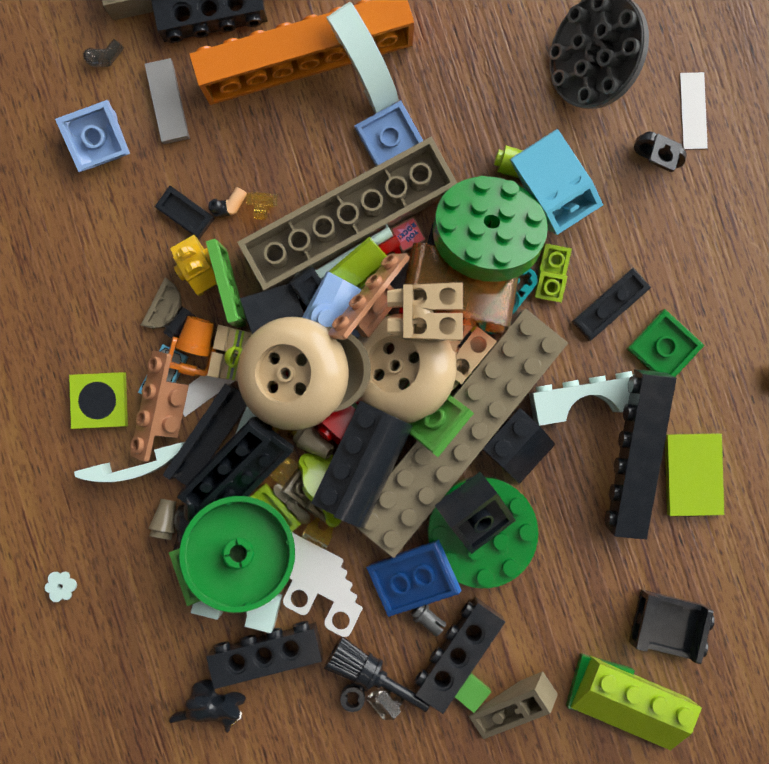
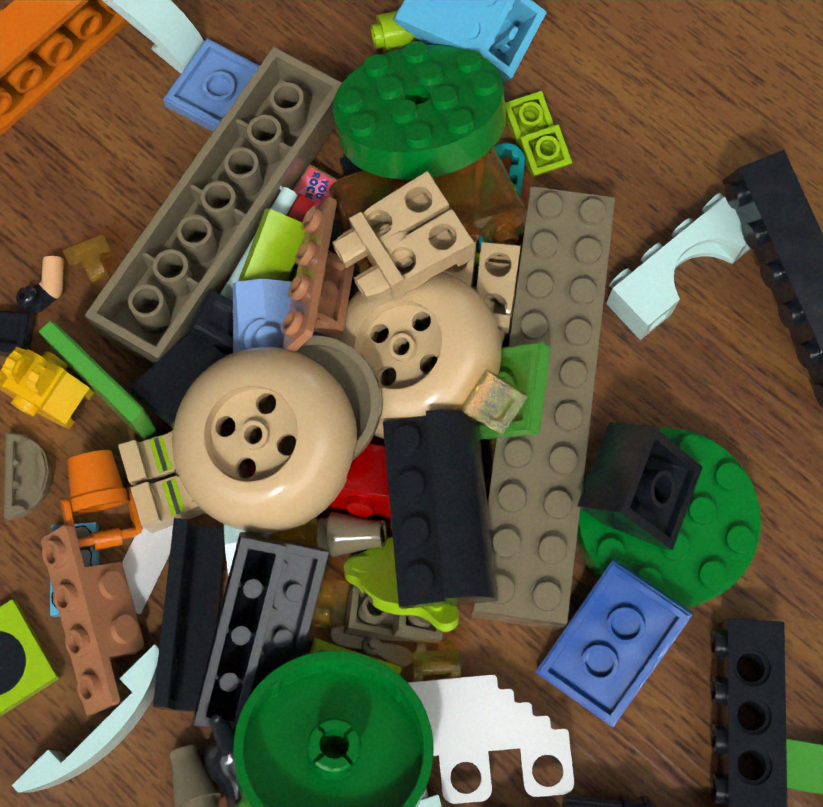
camera: 30 degrees left, 15 degrees down
(176, 325) = (57, 484): black pin -> none
(229, 354) = (157, 474): lime hinge -> none
(423, 427) = (494, 402): none -> clear yellow tile
(428, 619) = (672, 694): dark grey pin -> none
(519, 445) = (637, 373): black slope -> none
(611, 304) = (637, 133): black tile -> none
(665, 345) = (737, 136): green tile -> none

